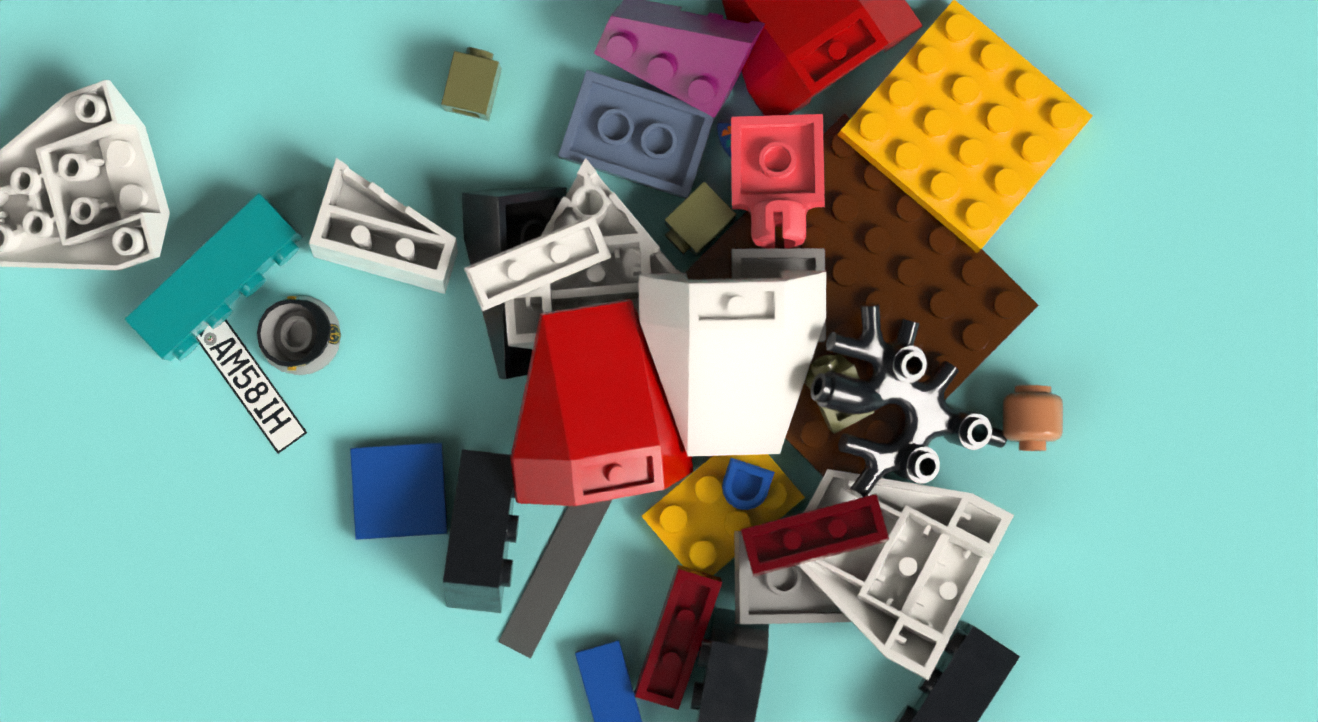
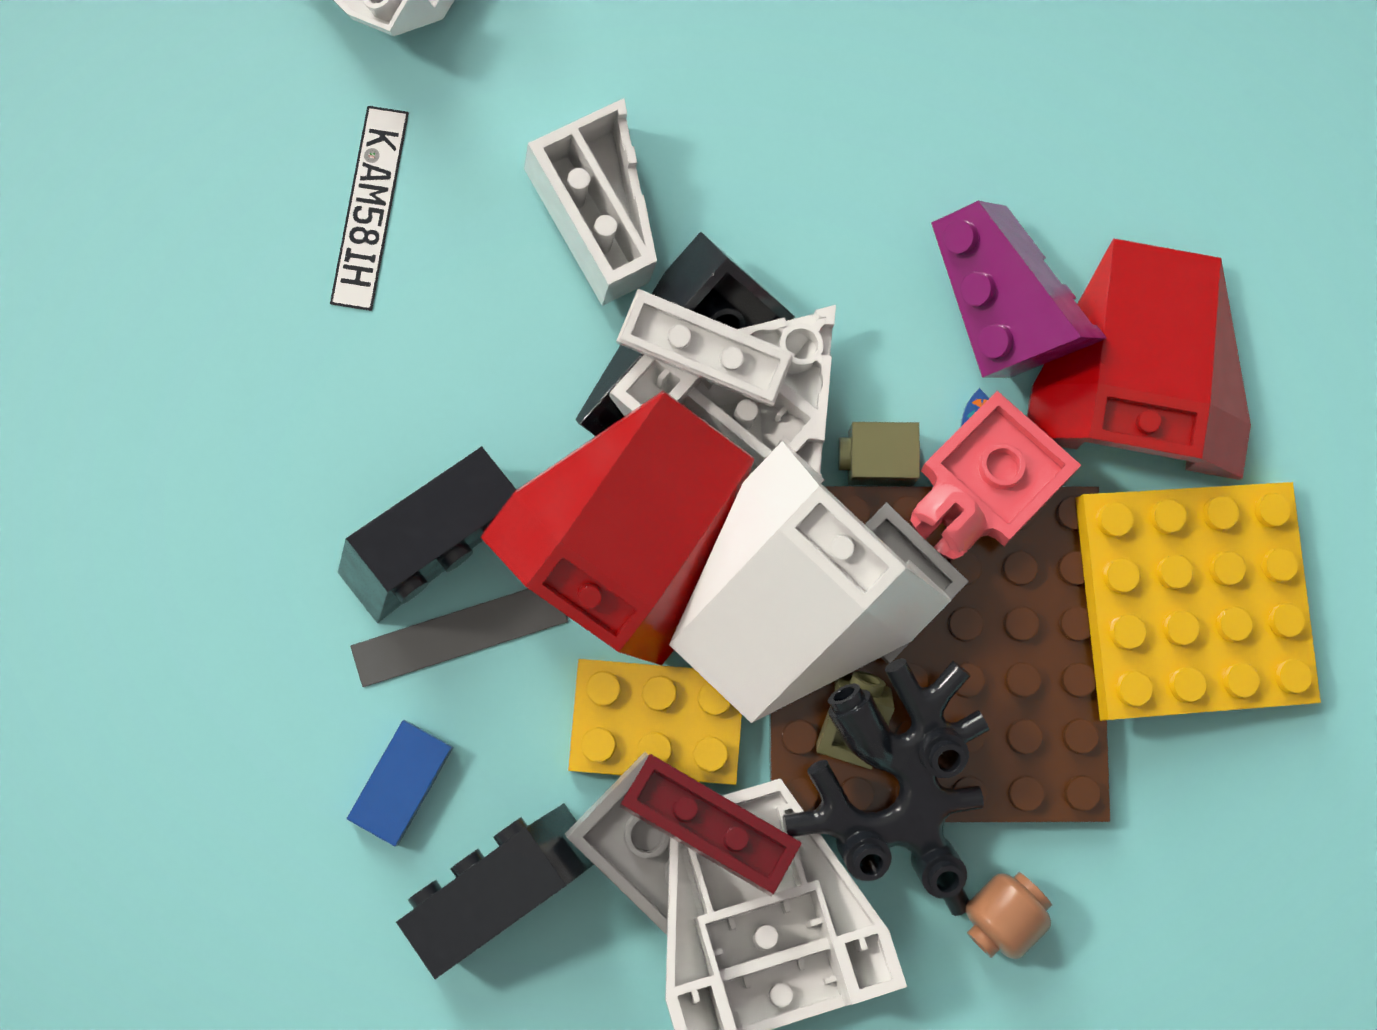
camera: 45 degrees right, 5 degrees down
(215, 278) = (423, 105): teal brick -> none
(299, 335) = (446, 221): light grey piece -> none
(399, 491) = (396, 432): blue tile -> none
(472, 84) = (800, 153): olive brick -> none
(636, 134) = (900, 330): sand blue plate -> none
(677, 637) = (503, 795): dark red plate -> none
(746, 484) = (695, 720): blue tile -> none

